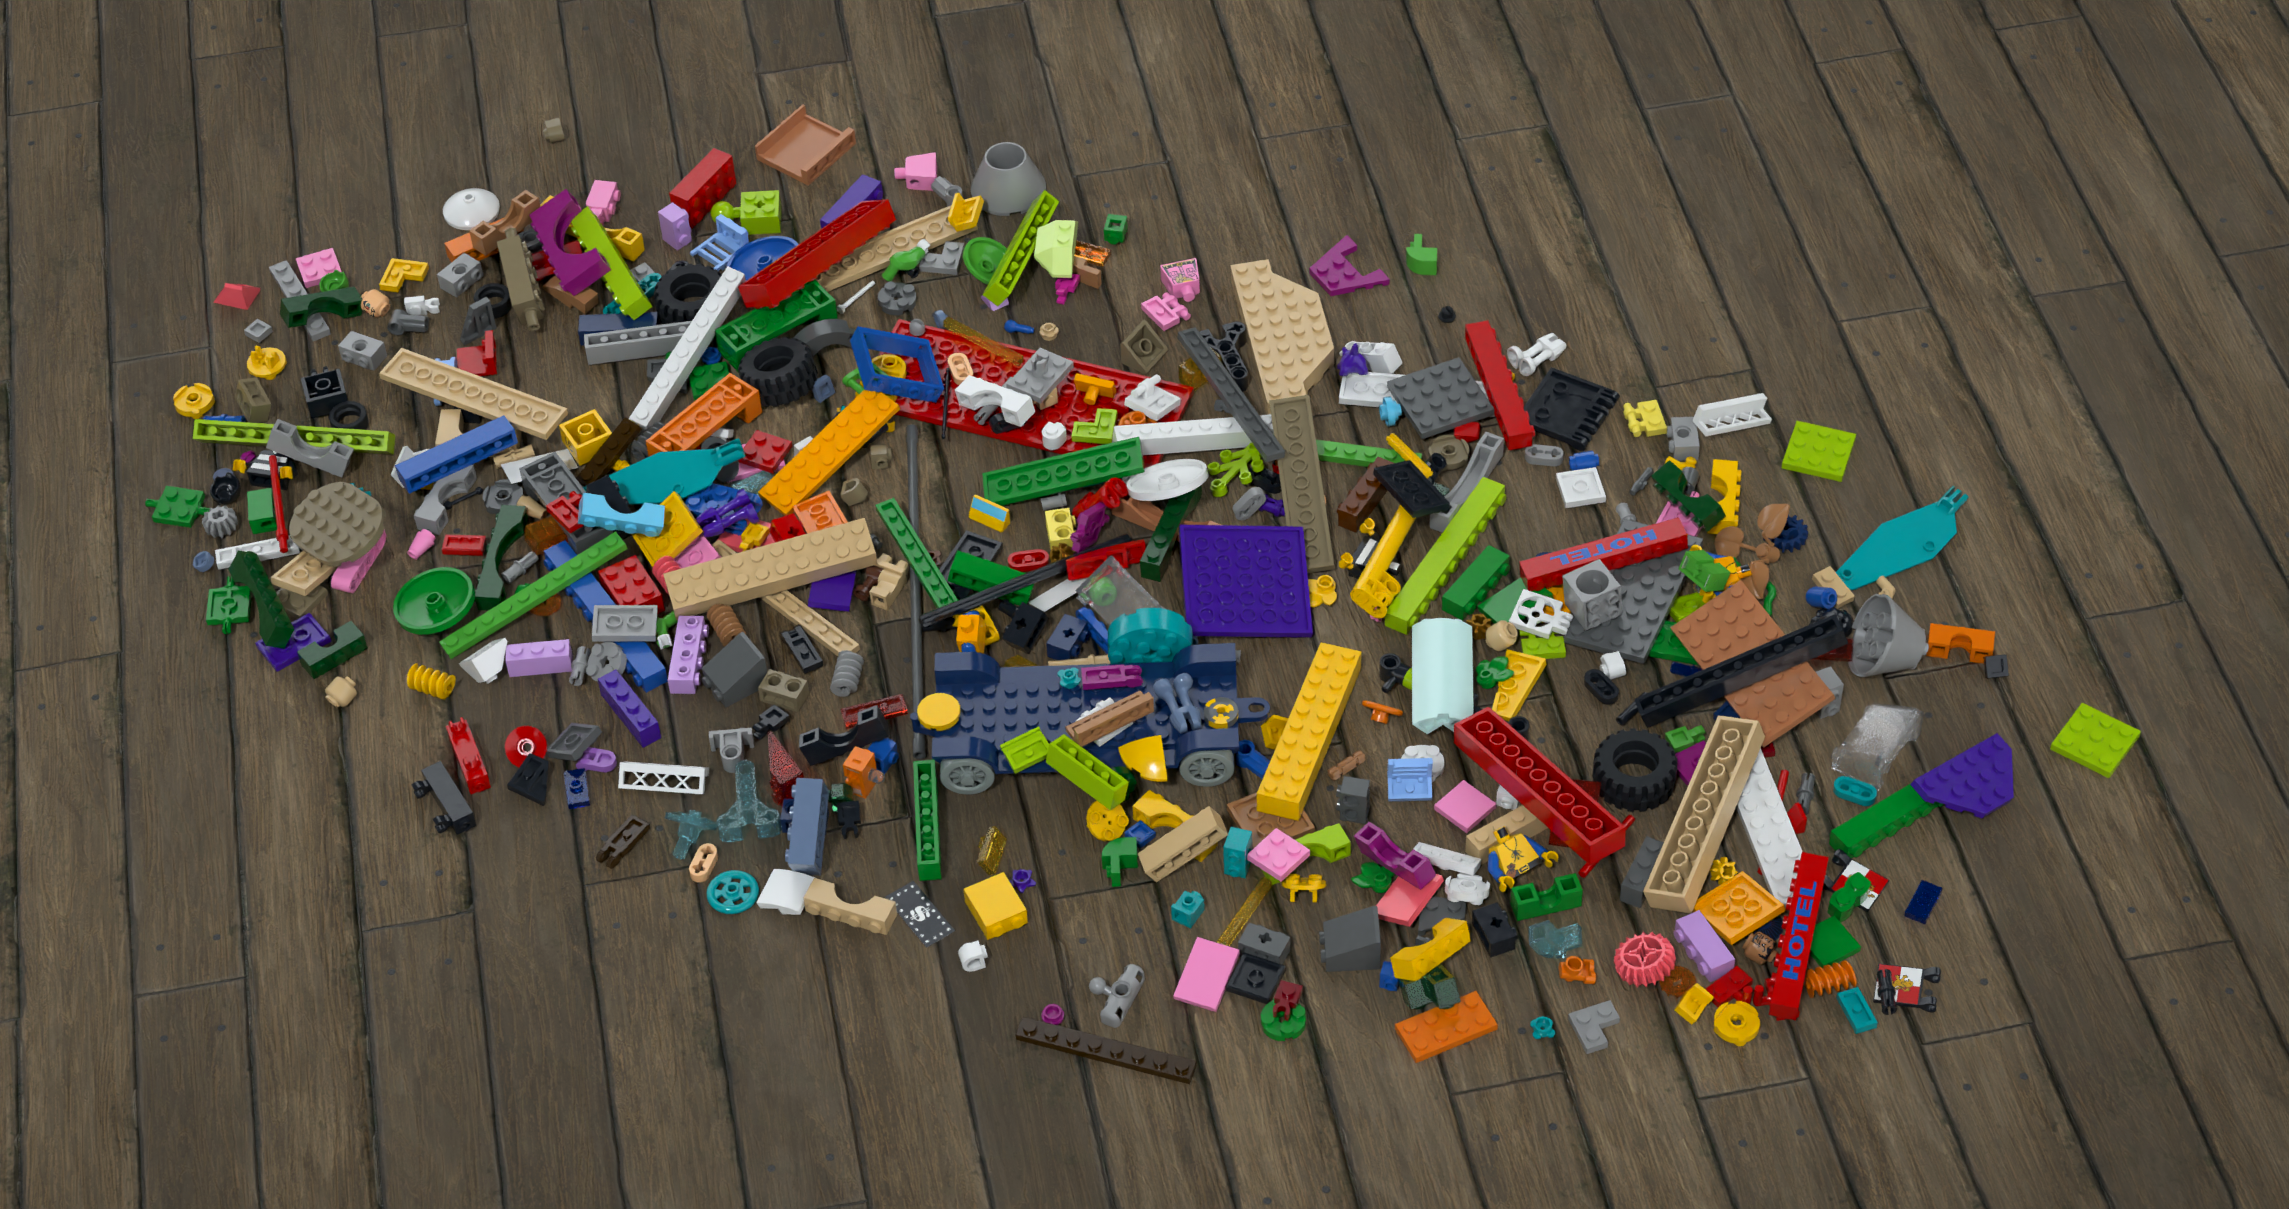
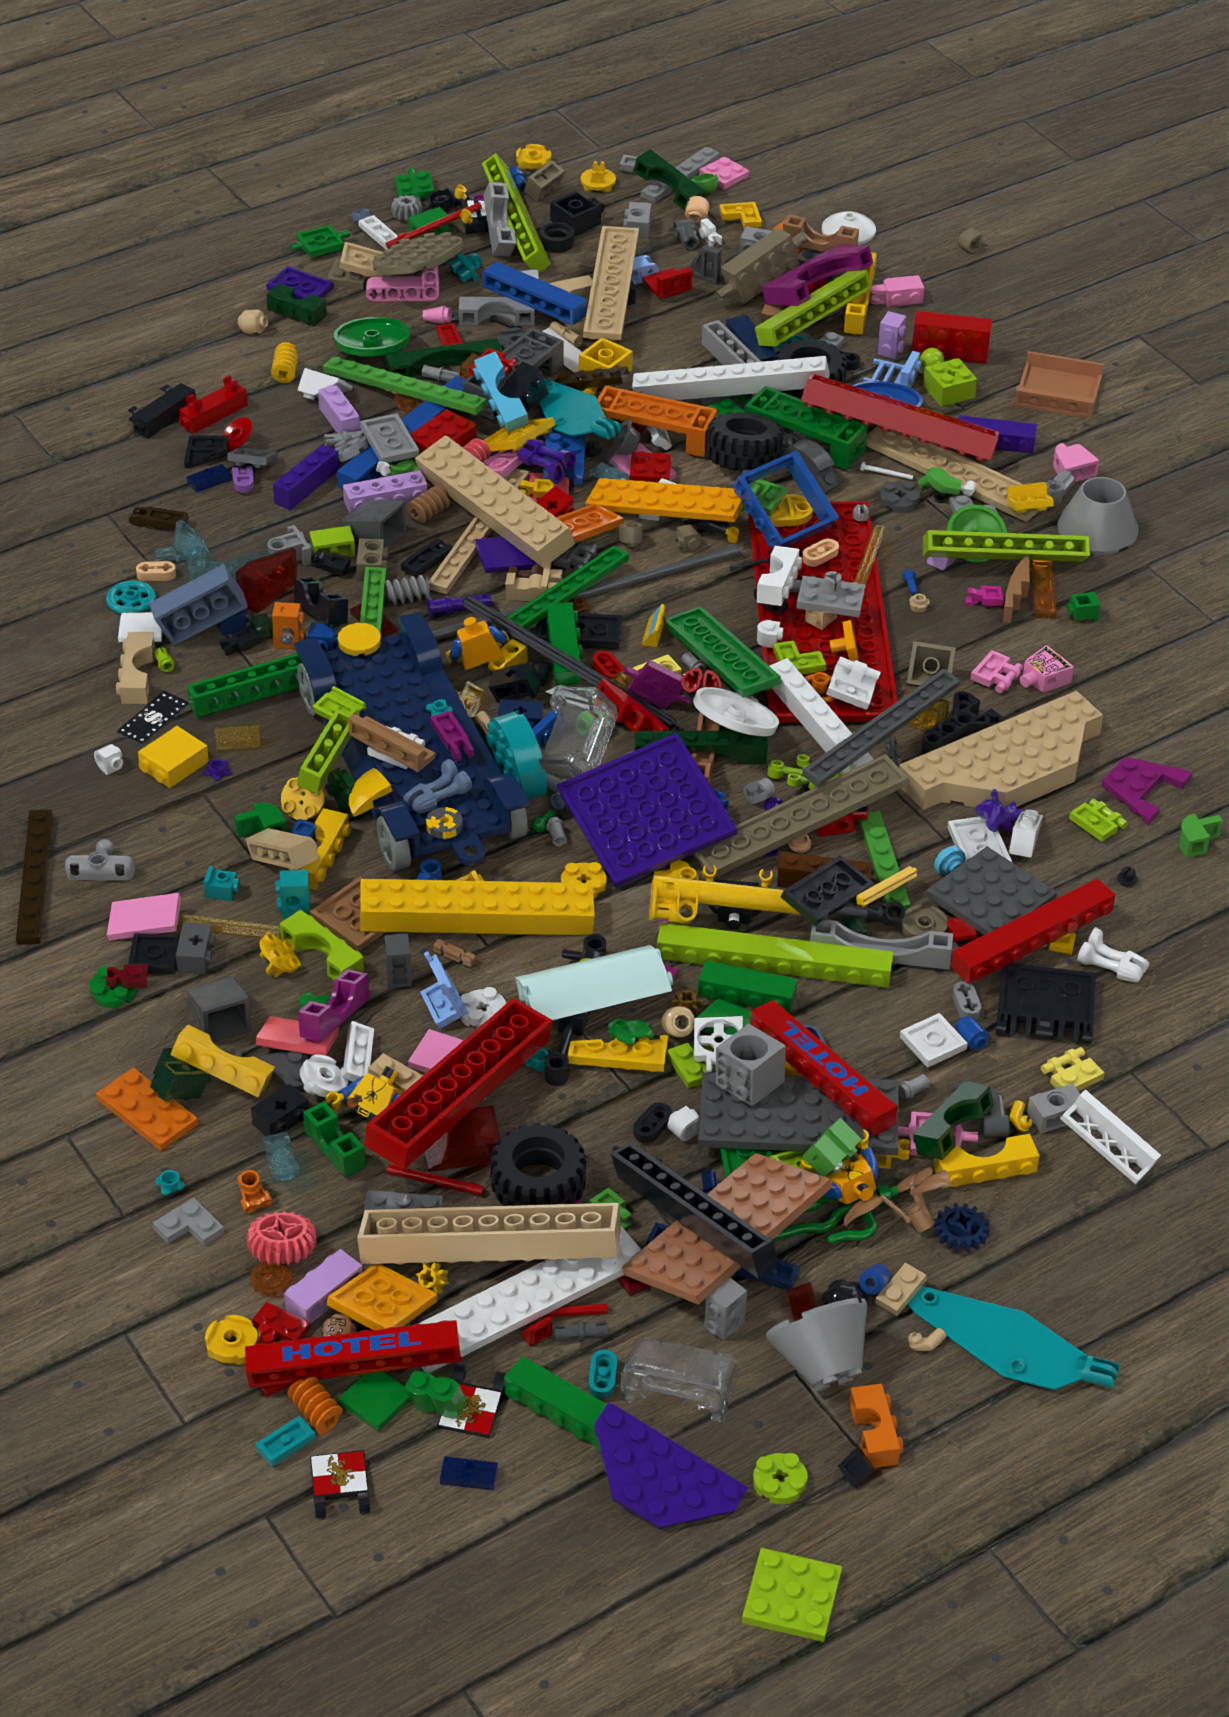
camera: 65 degrees right, 5 degrees down
(237, 295) = (665, 142): coral slope -> none
(273, 620) = (310, 254): dark green arch -> none
(657, 769) = (245, 515): white fence -> none
(742, 710) = (336, 540): none -> lime brick
(847, 884) = (165, 662): none -> lime pin
(856, 701) = (373, 596): none -> bright green plate
(881, 650) = (450, 604): none -> dark purple pin
(939, 317) = (889, 527): sand blue tile -> none
(1052, 1014) = (61, 828): magenta plate -> none
(1056, 247) = (1021, 567): yellowish green wedge -> none
(1278, 854) = (299, 921): bright pink plate -> none
(1290, 646) = (585, 871): none -> yellow plate
(1375, 309) = (1098, 819): none -> lime plate
(1381, 712) = (530, 958): orange piece -> none
(1693, 1003) = (238, 1294): yellow bracket -> none
(1819, 451) = (1114, 1235): lime plate -> none
(1886, 992) = (318, 1460): black pin -> none
(1976, 714) = (780, 1464): none -> lime plate

